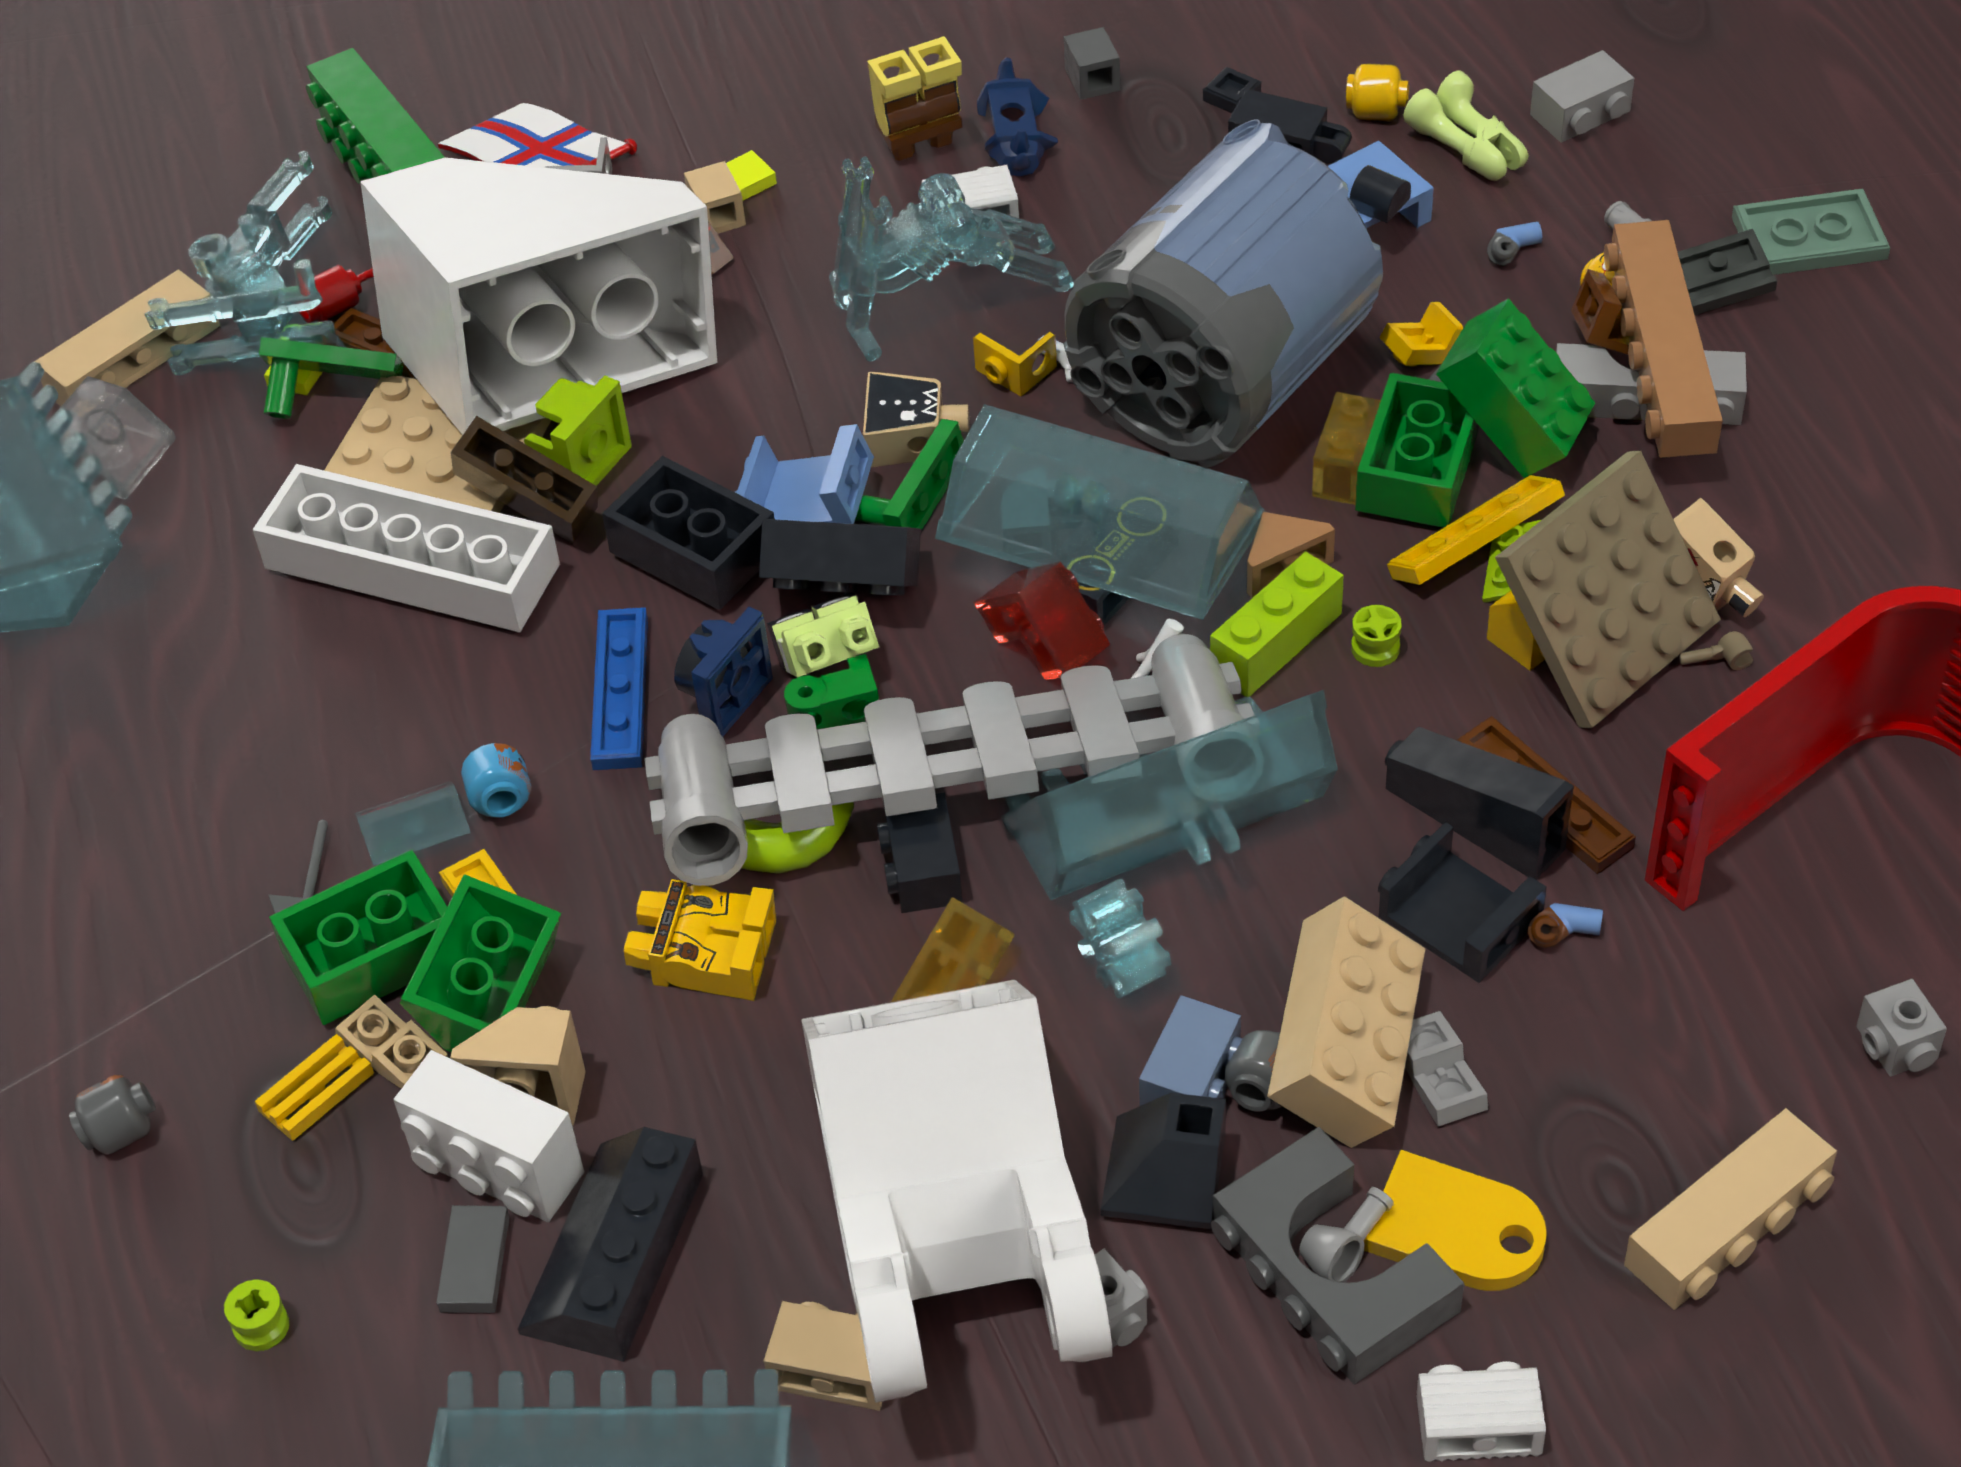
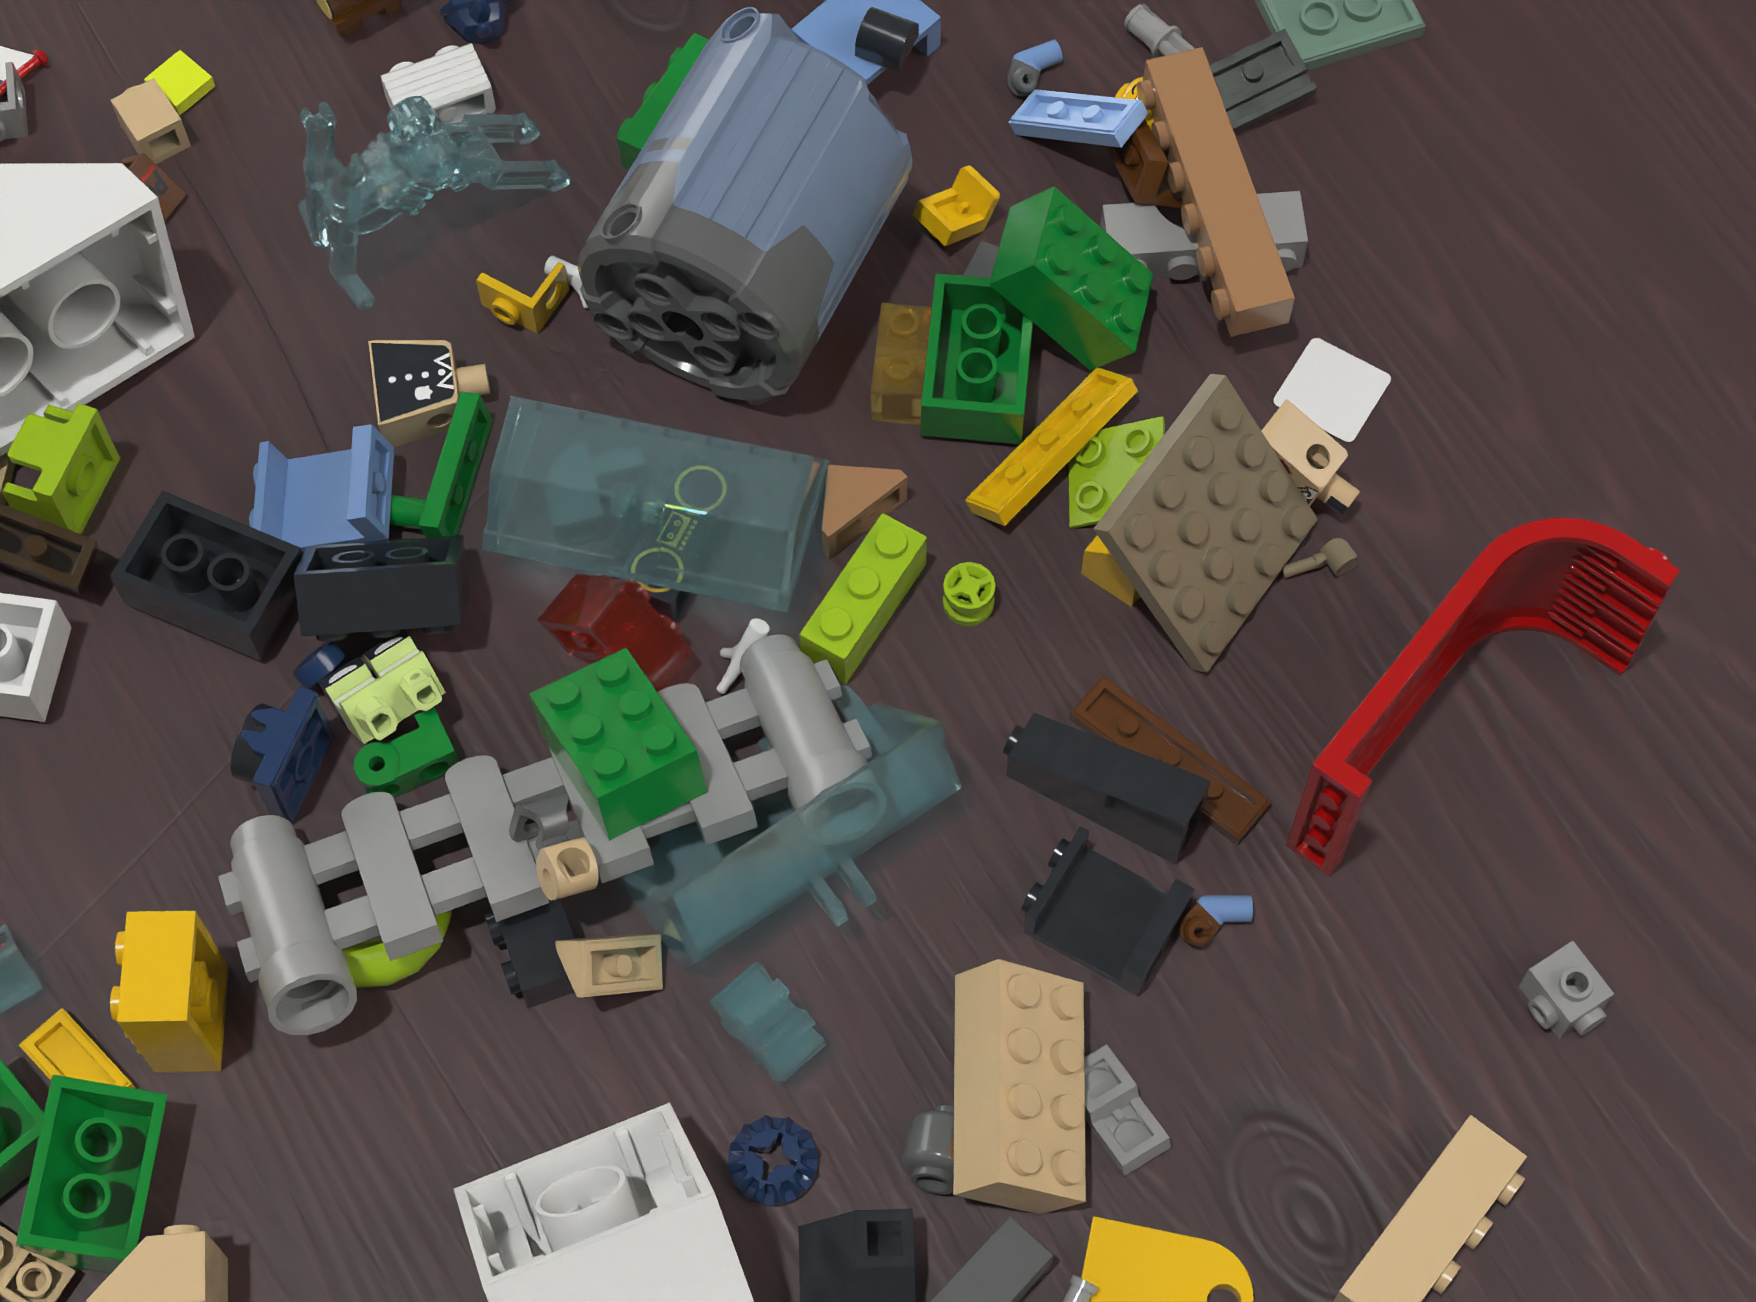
camera: 15 degrees left, 15 degrees up
(496, 780) = (58, 923): dark azure head -> none
(583, 830) = (171, 991): none -> yellow brick
(619, 689) = (169, 777): blue tile -> none
(703, 938) = (324, 1084): yellow hips -> none
(776, 609) = (318, 664): none -> dark blue tile
(954, 767) = (562, 863): none -> leg
(957, 954) = (594, 1077): clear yellow slope -> none
(986, 873) = (612, 964): none -> tan slope
(1026, 687) = (618, 743): none -> green brick
(1110, 1079) = (785, 1182): none -> dark blue gear
(1191, 1052) = (864, 1150): sand blue brick -> none
(1546, 274) = (1078, 118): none -> light blue tile
(1761, 519) = (1333, 388): none -> white sticker

